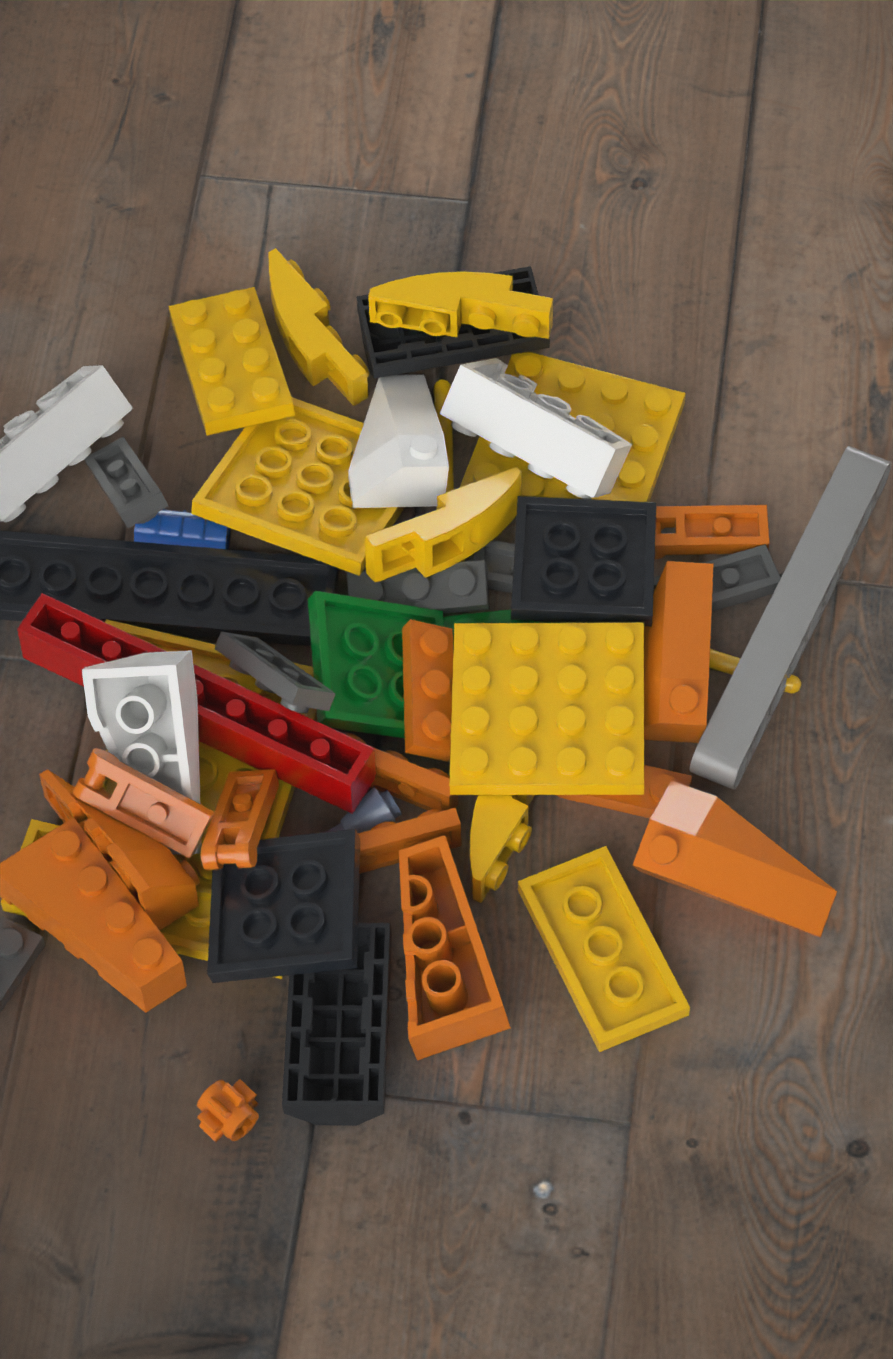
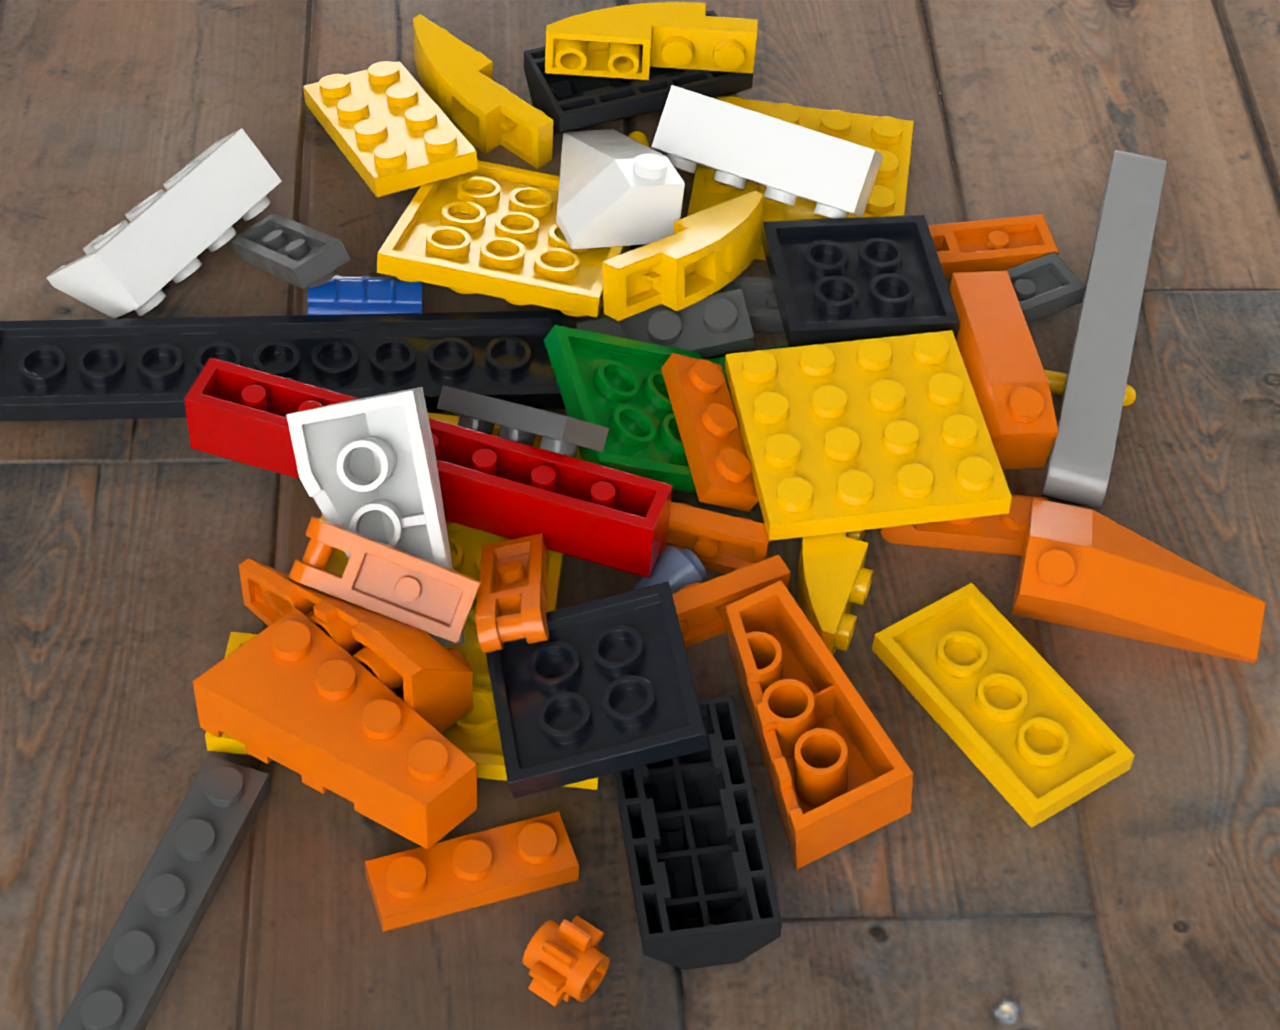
camera: 15 degrees left, 10 degrees down
(177, 1030) = (471, 871): none -> orange plate

